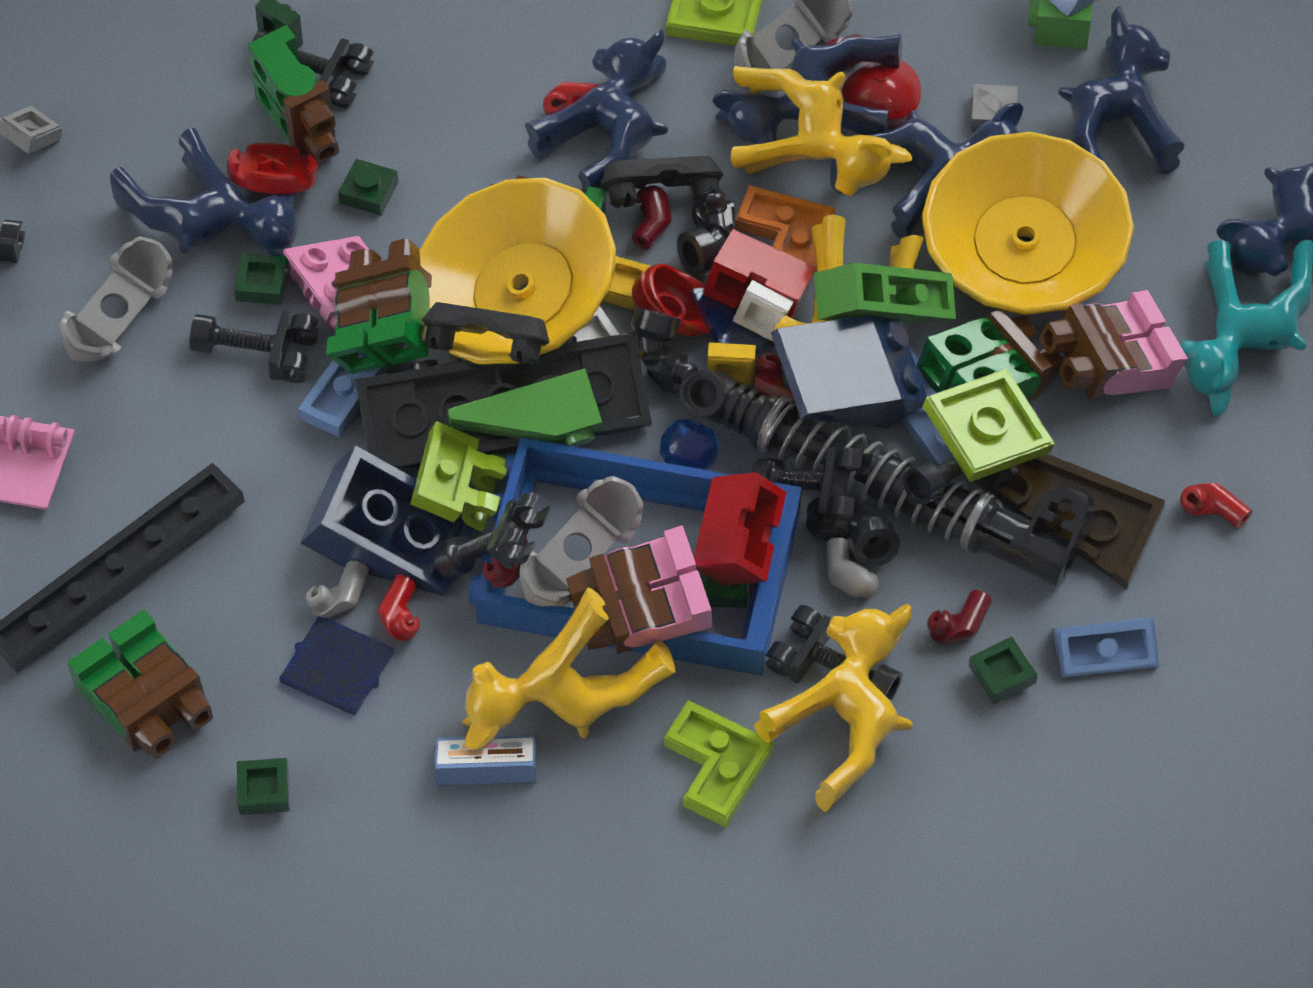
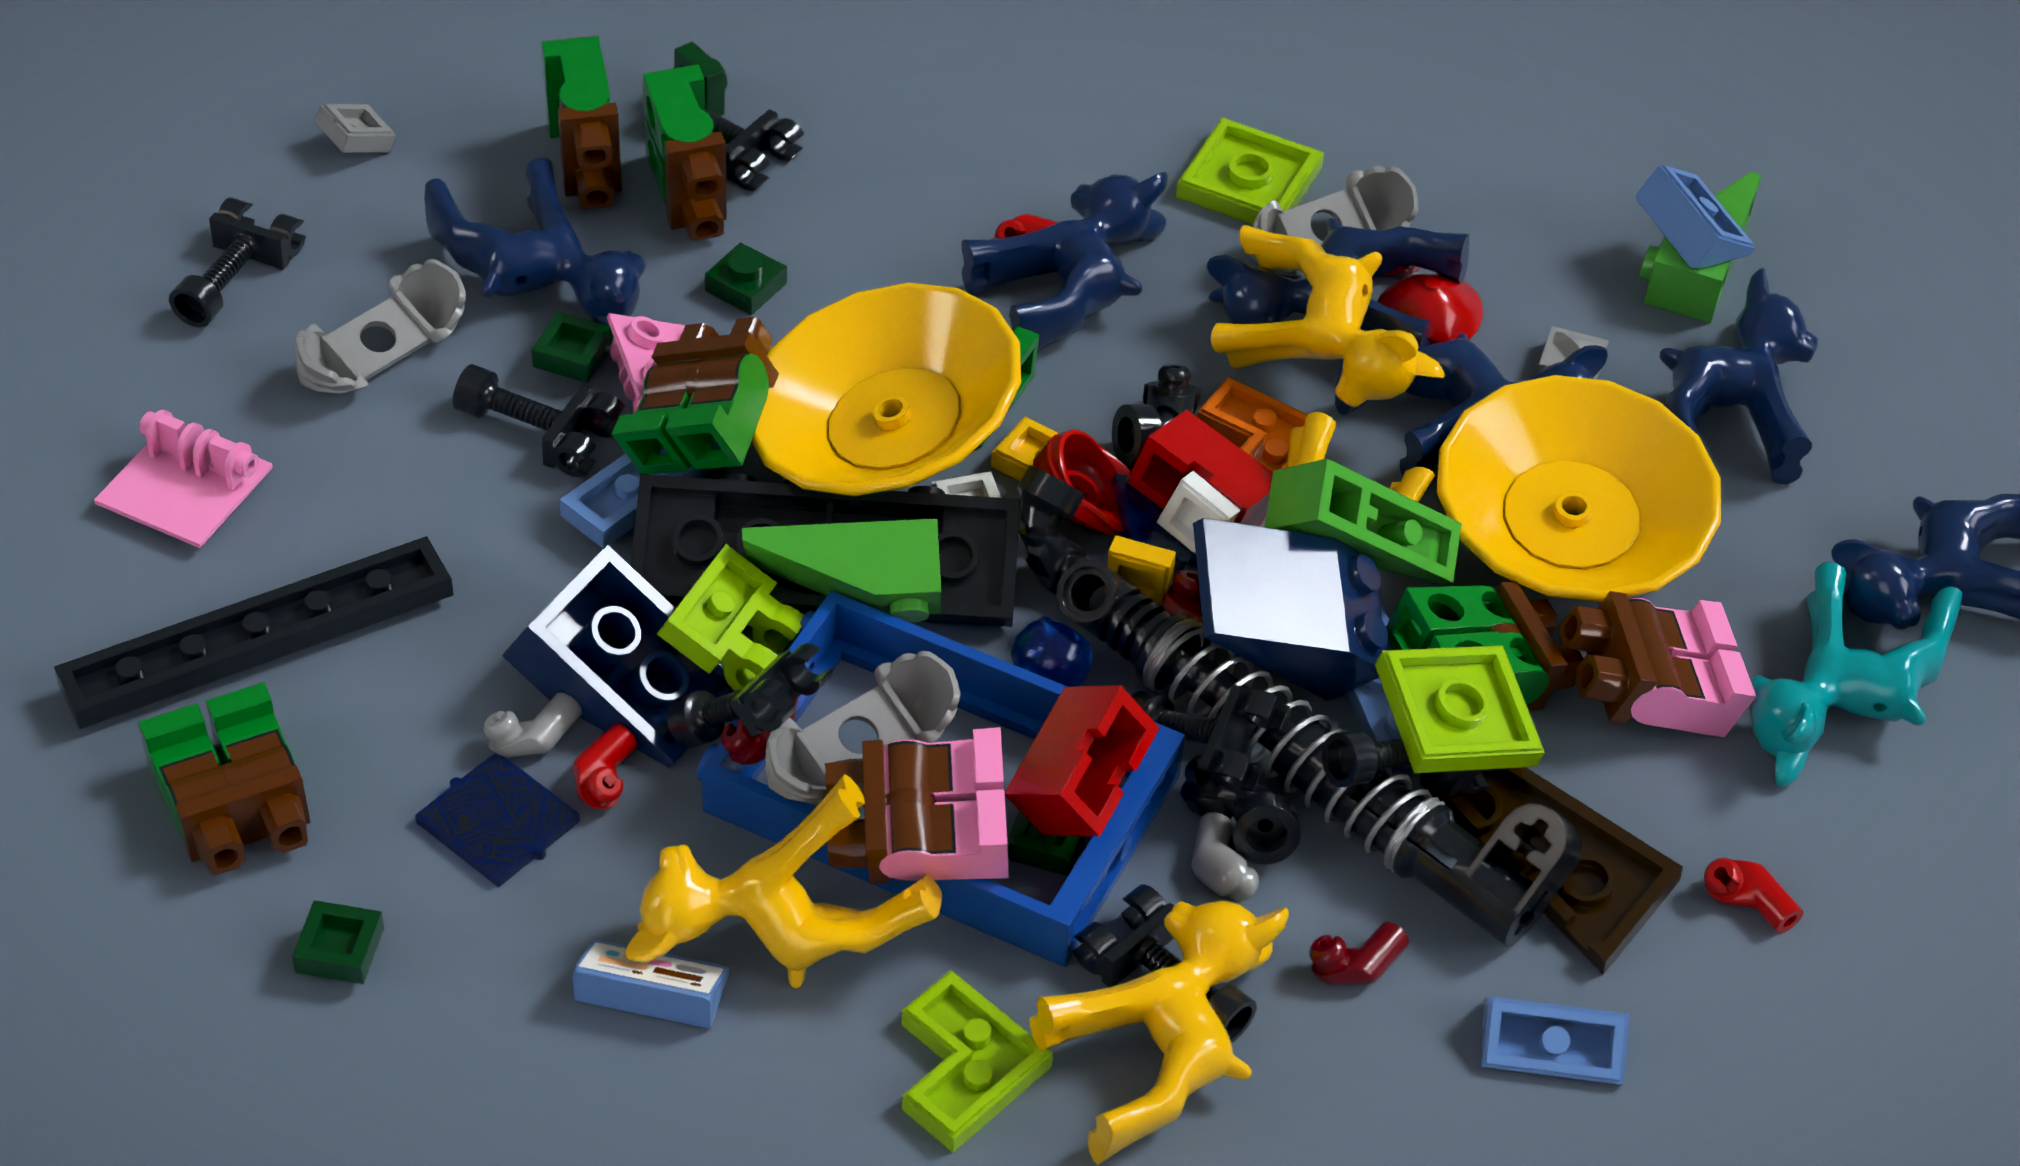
camera: 10 degrees right, 10 degrees down
(201, 71) = (583, 119): none -> hips
(272, 168) = (631, 227): red tile -> none
(526, 331) = (866, 450): black piece -> none
(625, 176) = (1071, 326): black piece -> none
(657, 214) = (1098, 388): dark red arm -> none
(1002, 670) = (1399, 1034): dark green plate -> none

